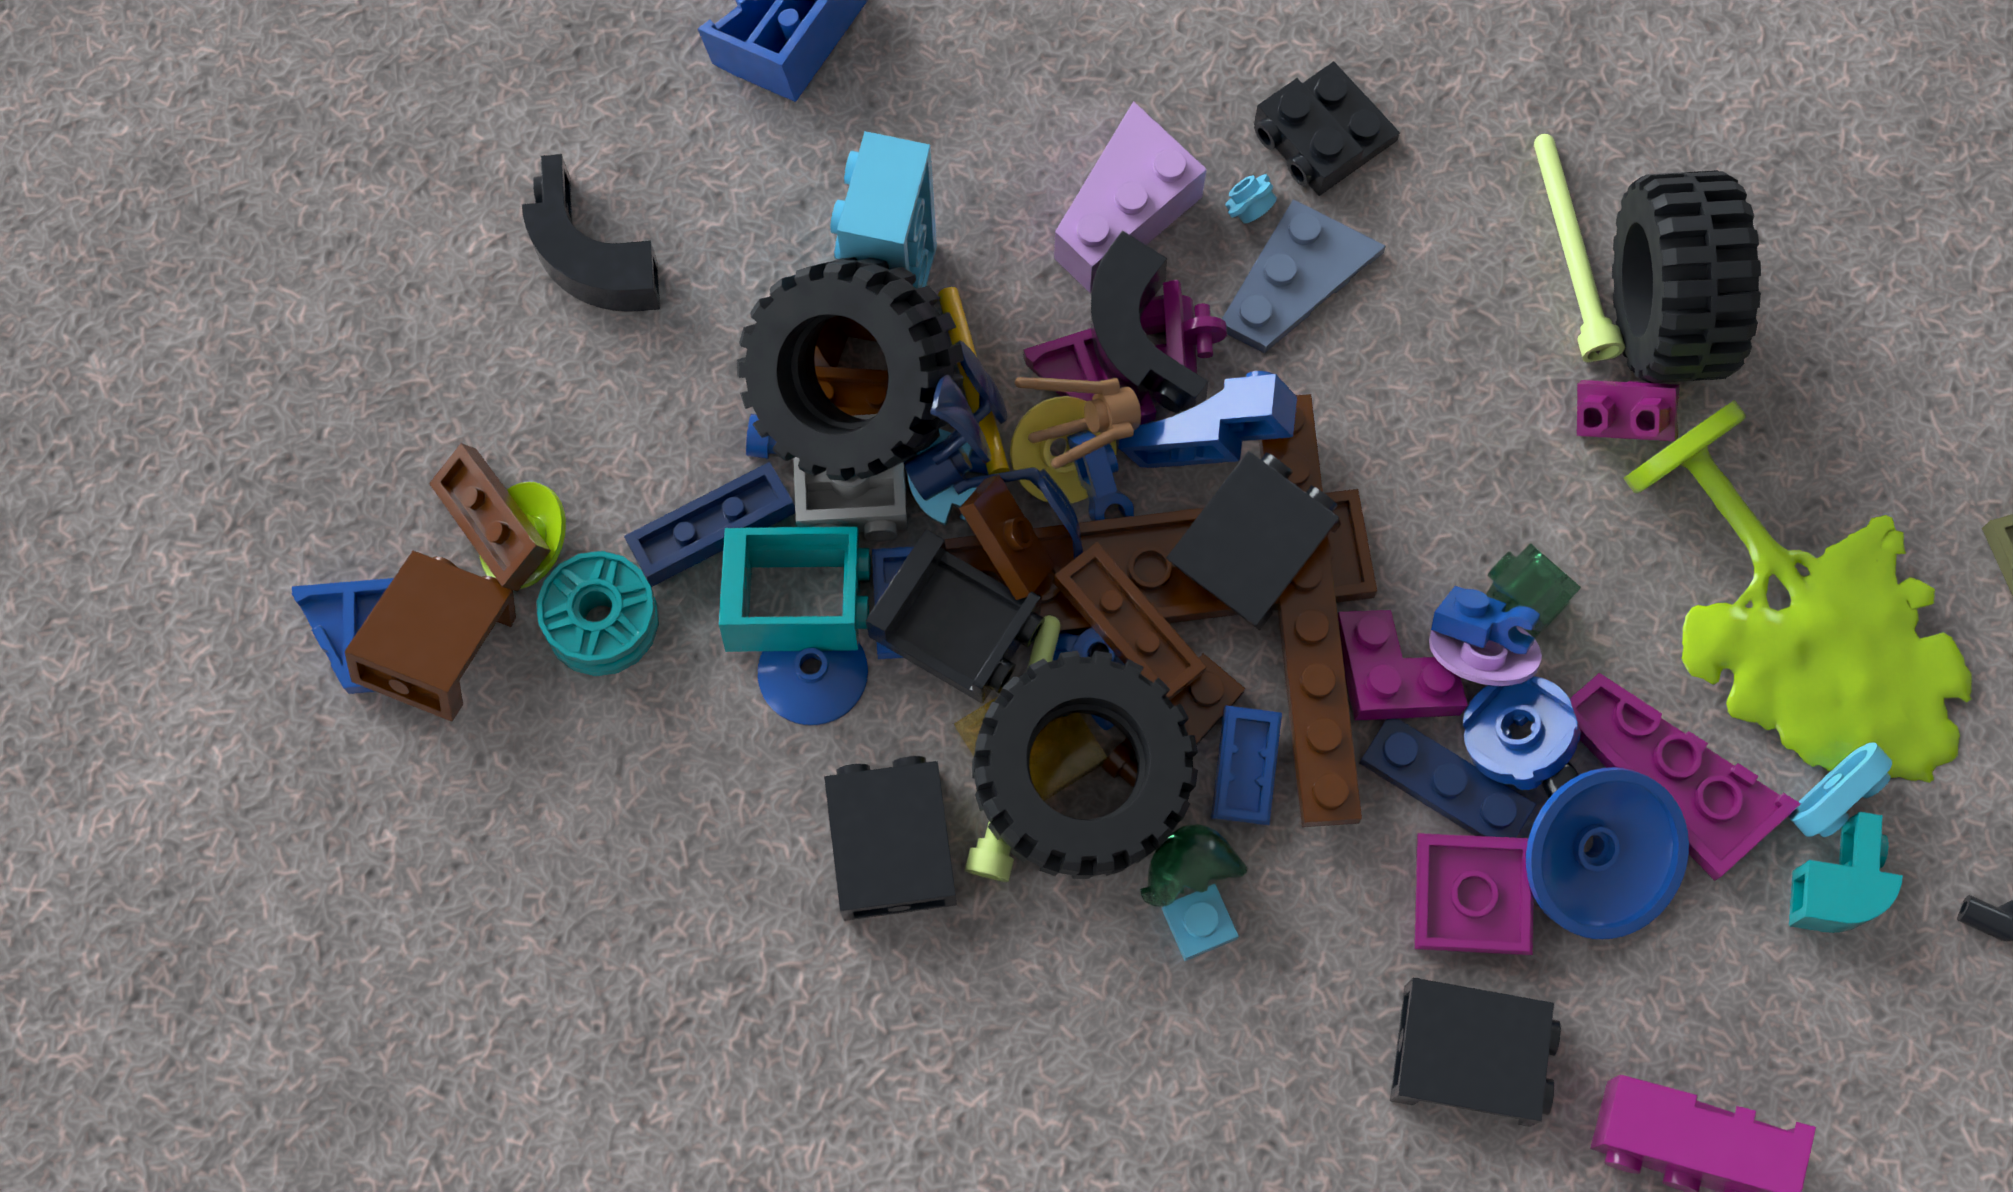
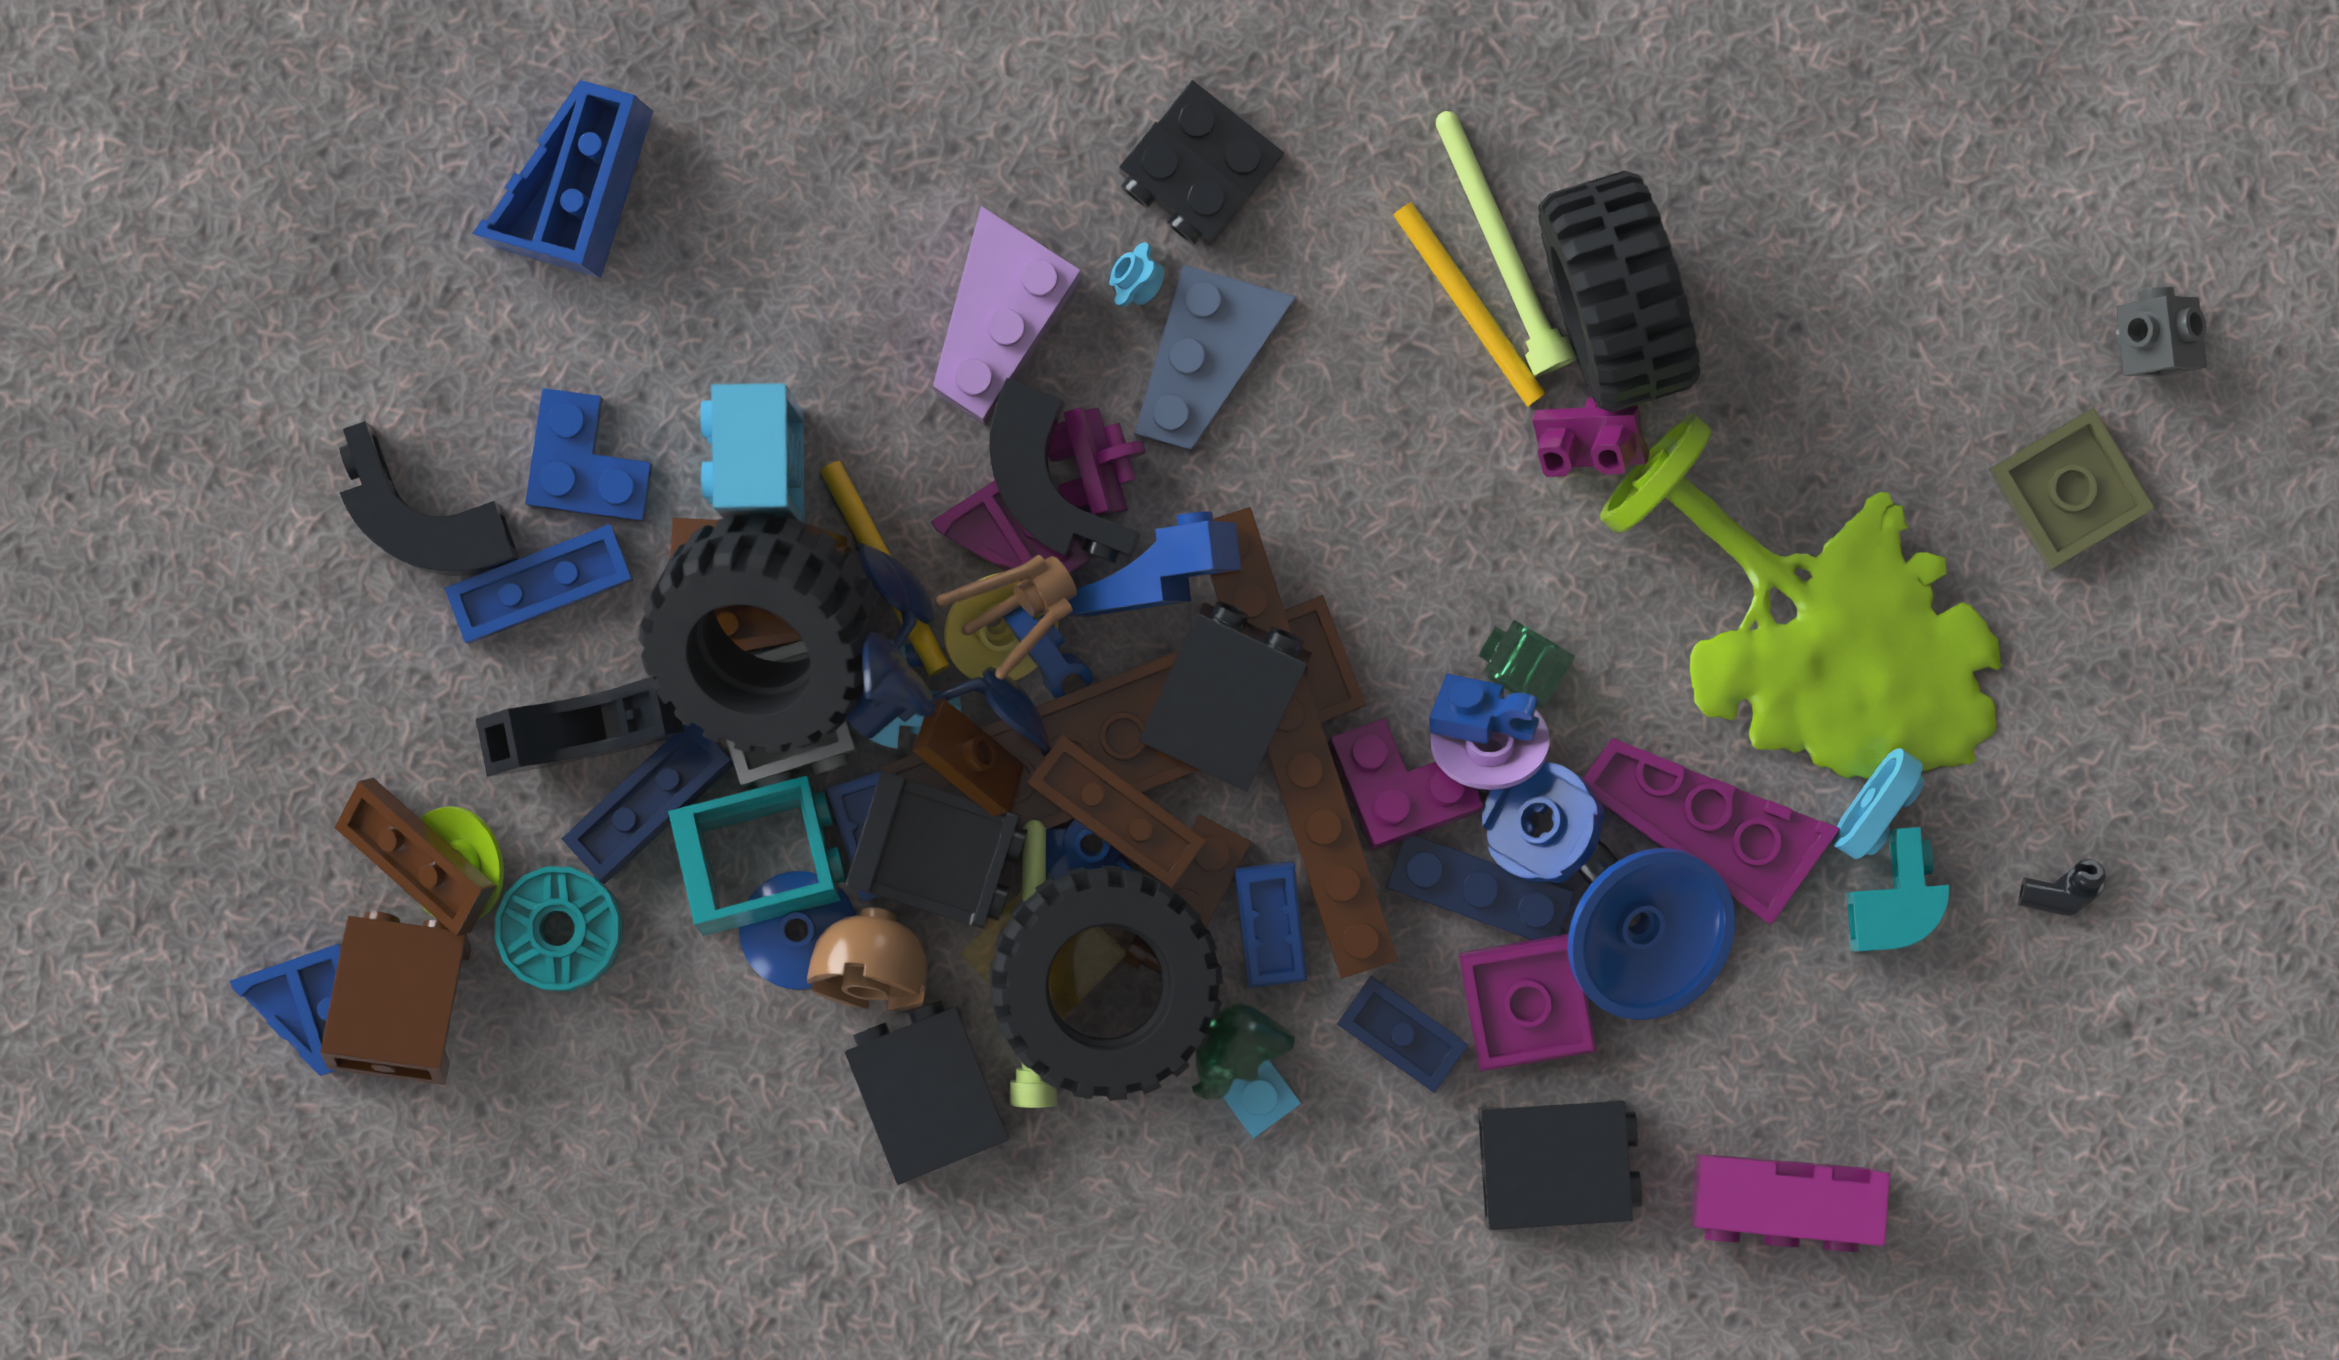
camera: 15 degrees left, 15 degrees up
(667, 325) = (539, 584): none -> blue plate
(667, 449) = (576, 728): none -> black arch
(724, 244) = (567, 471): none -> blue plate
(868, 705) = (870, 961): none -> medium nougat cylinder
(1348, 895) = (1402, 1034): none -> dark blue plate
(1536, 290) = (1469, 304): none -> yellow piece

